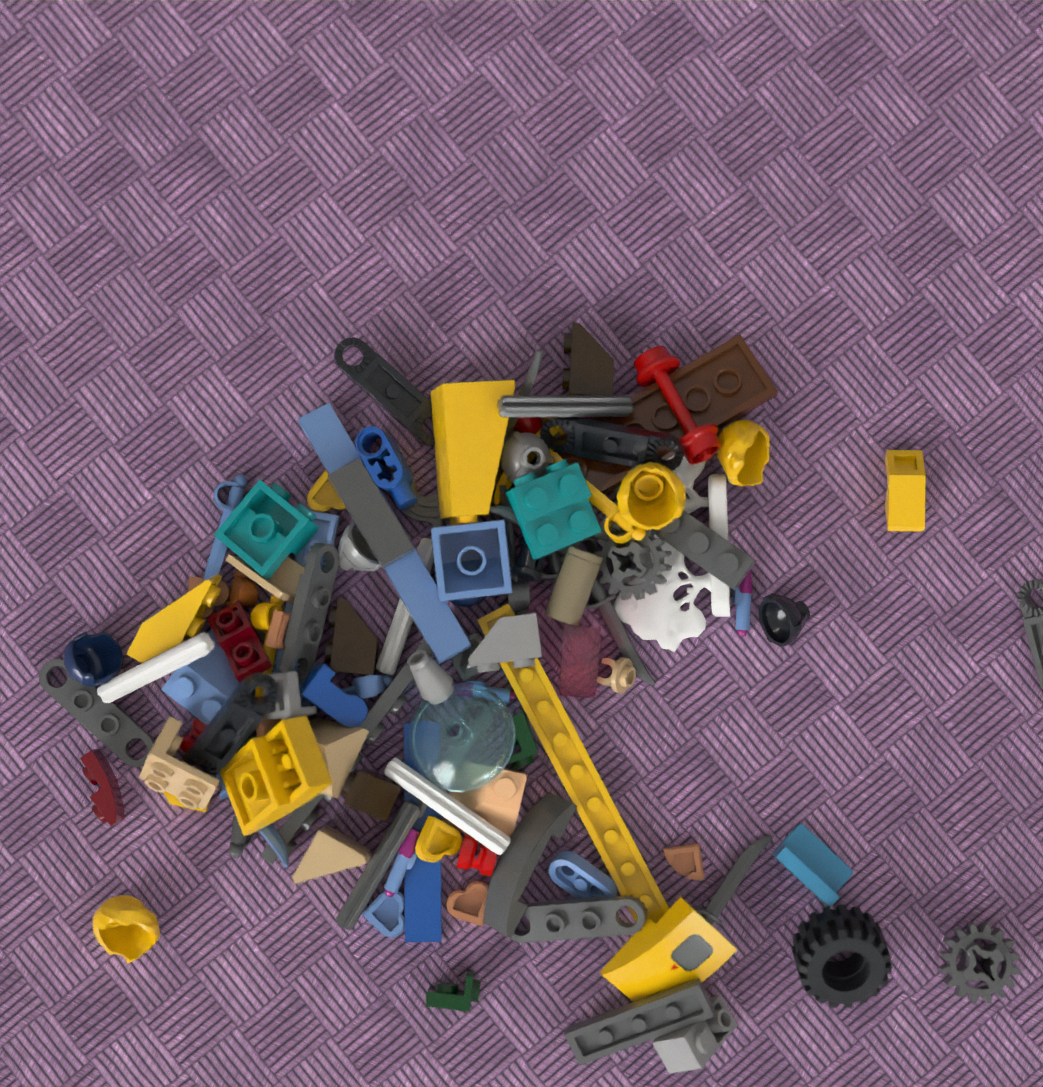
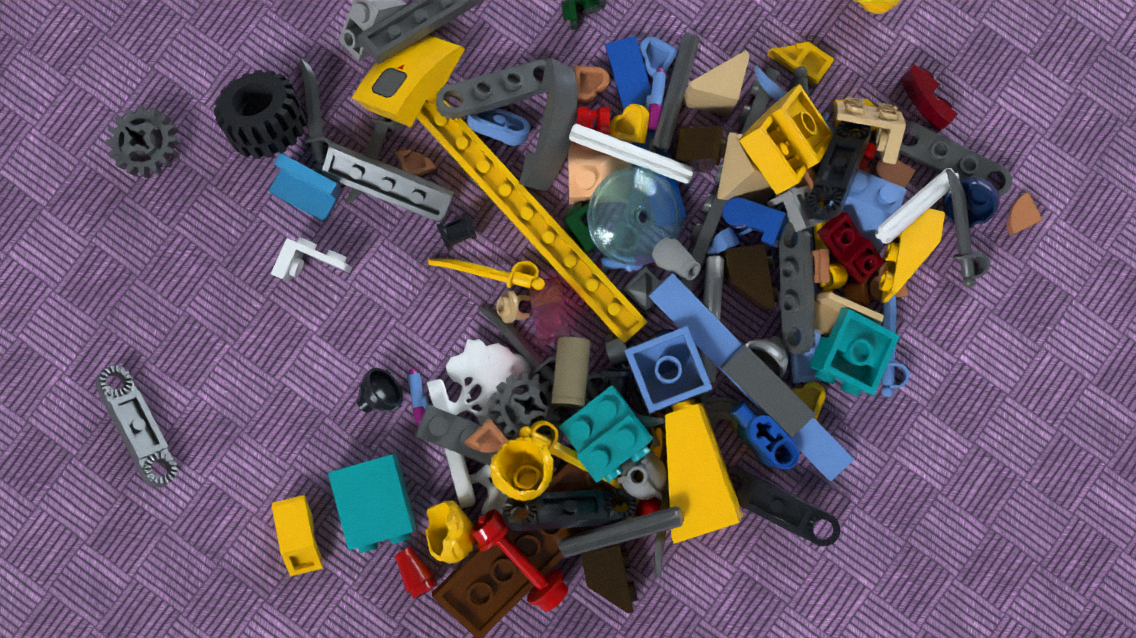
camera: 160 degrees right, 0 degrees up
(39, 632) = (1022, 214): none -> nougat tile
(112, 624) = (965, 251): none -> dark grey sword
(161, 708) = (895, 173): none -> nougat tile
(223, 868) = (804, 55): none -> yellow tile
(508, 640) = (614, 309): light grey slope -> none
(597, 706) = (522, 274): none -> yellow sword
(657, 772) = (456, 231): none -> black bush
(680, 538) = (486, 438): none -> nougat tile
(720, 845) = (387, 182): none -> plate
(785, 936) = (316, 139): none -> dark grey sword
(790, 419) = (414, 573): none -> red cone
(817, 504) = (373, 503): none -> teal brick
(846, 784) = (290, 259): none -> white bracket

